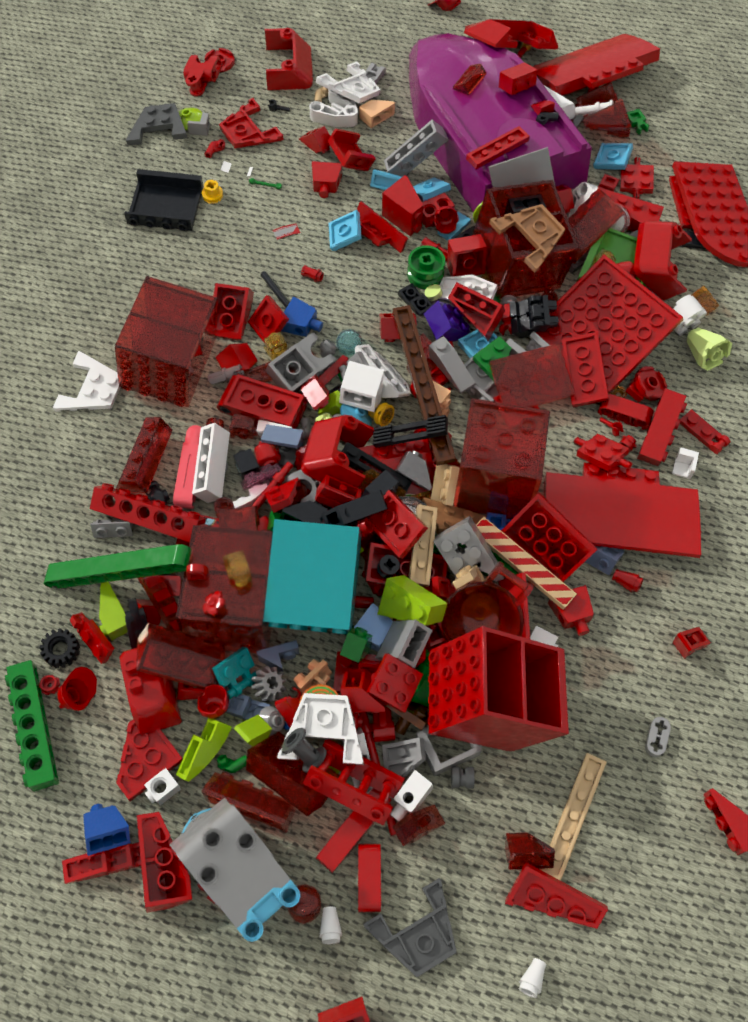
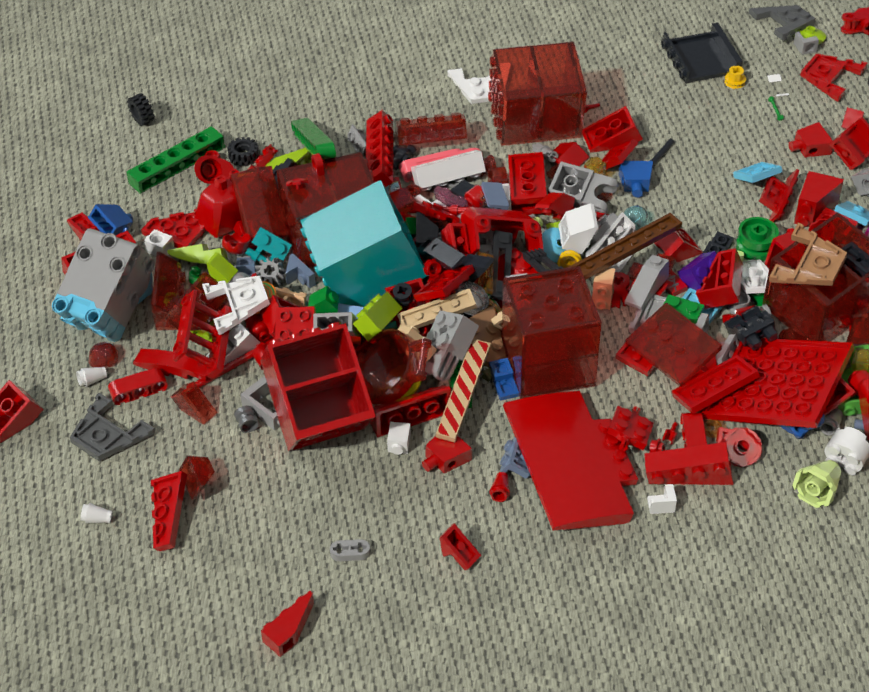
camera: 70 degrees right, 15 degrees down
(213, 147) = (790, 62): red arm -> none
(237, 568) = (333, 184): clear yellow brick -> none
(286, 231) = (732, 140): sticker -> none
(303, 749) = (213, 291): dark grey hose -> none
(316, 275) = (694, 171): red pin -> none
(327, 347) = (618, 205): light grey plate -> none
(383, 180) = (848, 187): medium azure tile -> none
(404, 756) = (244, 374): light grey wing -> none
(415, 786) = (218, 387): white torso -> none
(549, 537) = (489, 397): red slope -> none
(575, 813) = (247, 508): tan tile -> none
(704, 432) = (715, 509): red plate -> none

